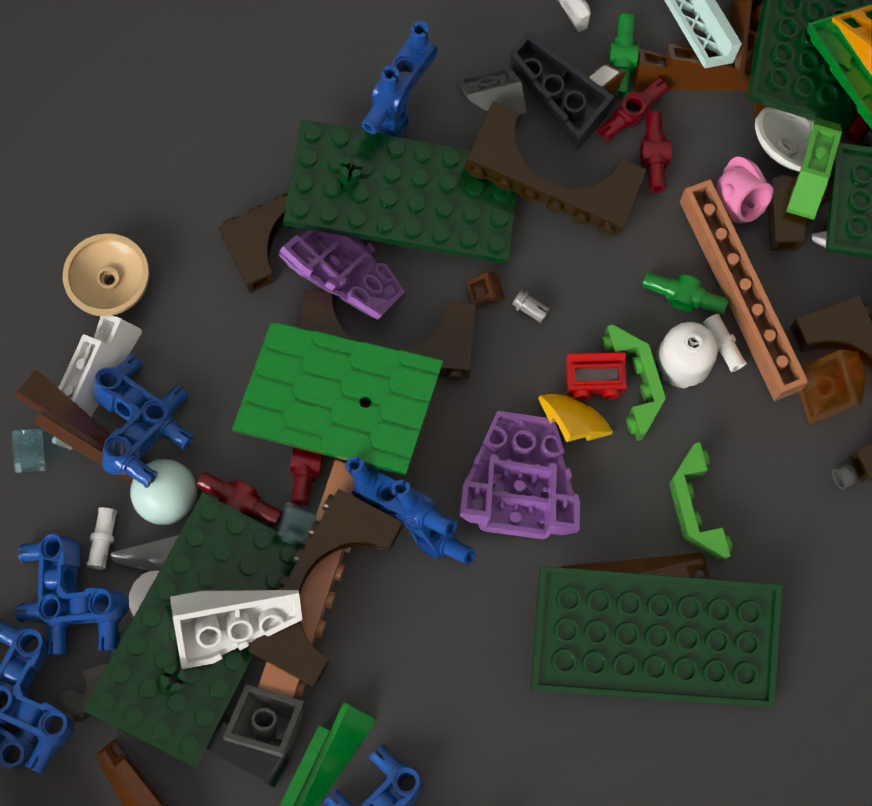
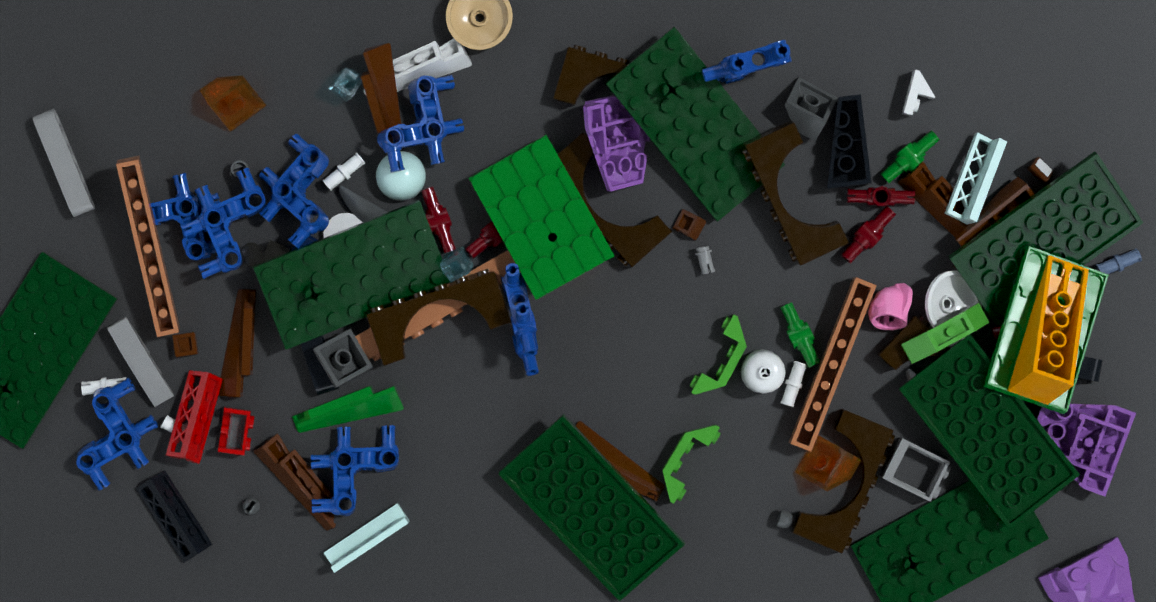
camera: 40 degrees right, 15 degrees up
(221, 621) = (364, 286): white wedge -> none
(521, 480) = (602, 355): medium lavender wedge -> none
(574, 417) = (666, 347): yellow brick -> none
(595, 375) = (701, 335): red window -> none
(607, 77) = (882, 163): slope -> none

